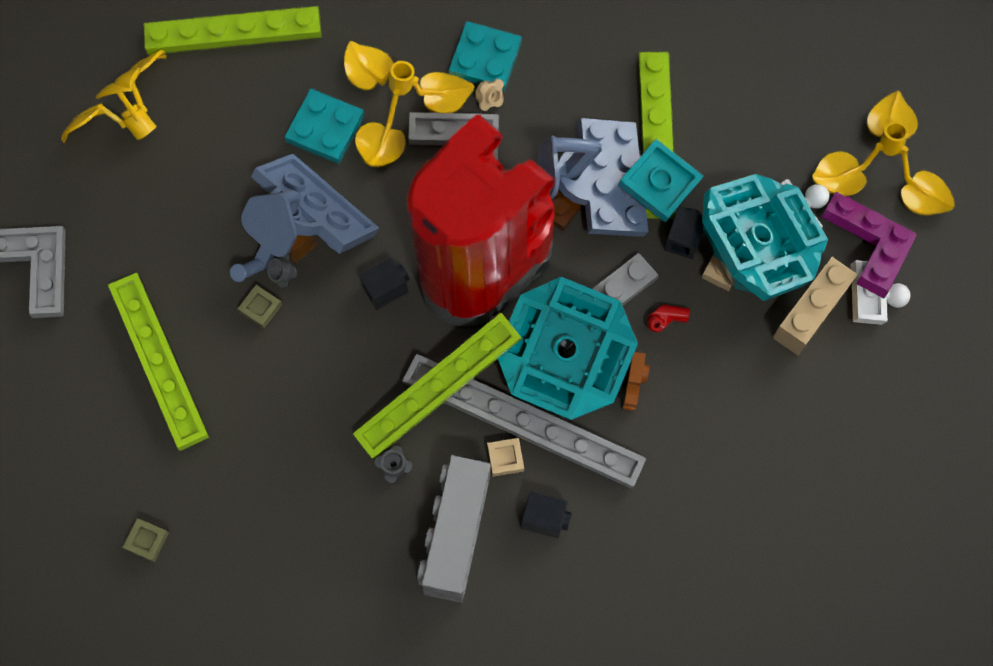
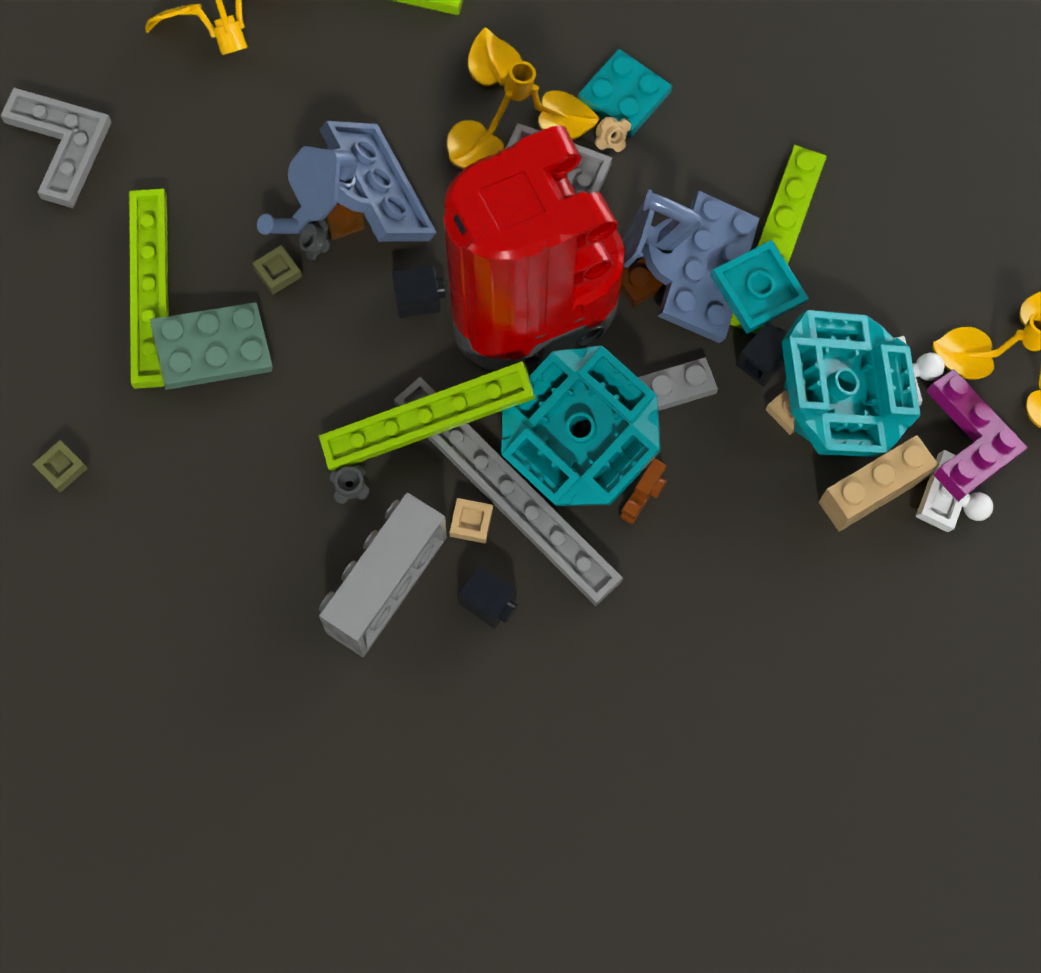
camera: 20 degrees right, 0 degrees up
(231, 391) = (210, 345): none -> sand green plate
(324, 126) = (423, 107): teal plate -> none
(665, 315) = (708, 434): red arm -> none

